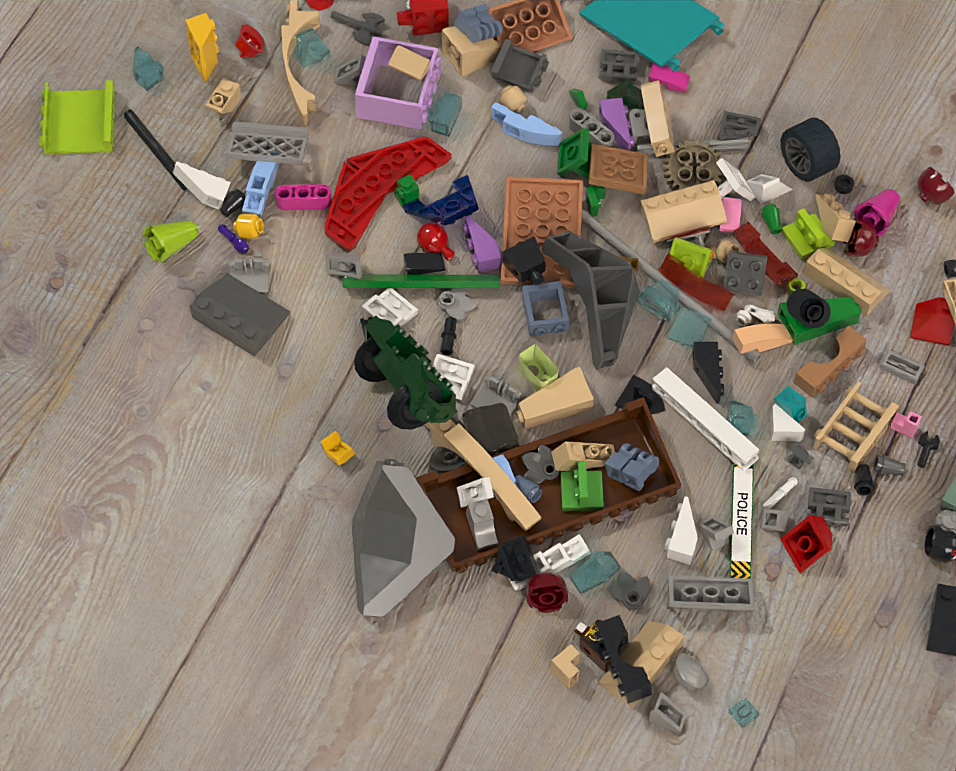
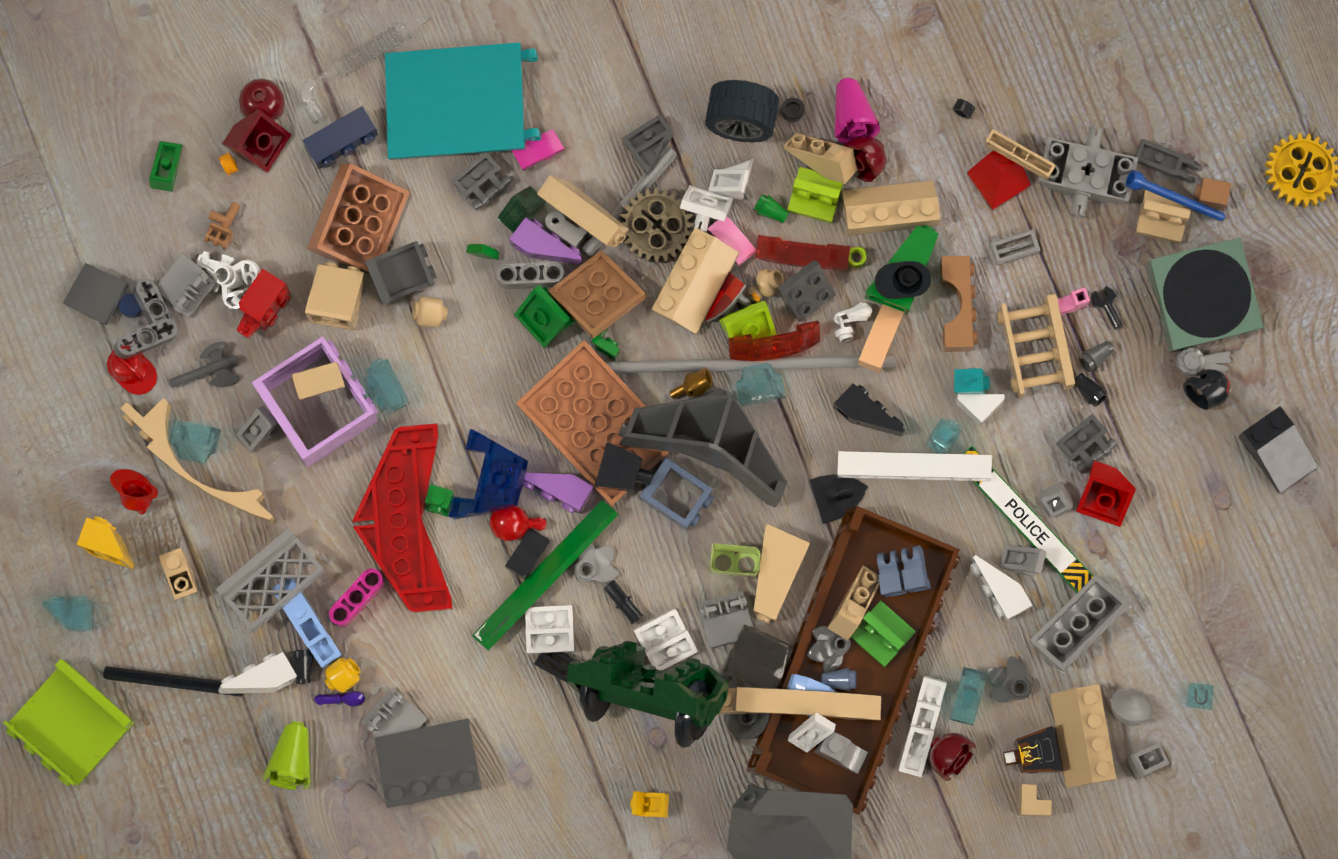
camera: 45 degrees left, 20 degrees up
(344, 265) = (471, 627): light grey slope -> none
(478, 23) = (328, 272): sand blue legs -> none
(516, 560) = (903, 755): black slope -> none
(530, 130) = (479, 326): light blue slope -> none
(632, 680) = (1108, 771): black arch -> none
(689, 327) = (811, 389): clear light blue piece -> none
(782, 491) = (1036, 472): white piece -> none
(801, 454) = (1019, 417): dark grey tile -> none
(933, 187) = (874, 41): dark red cylinder -> none

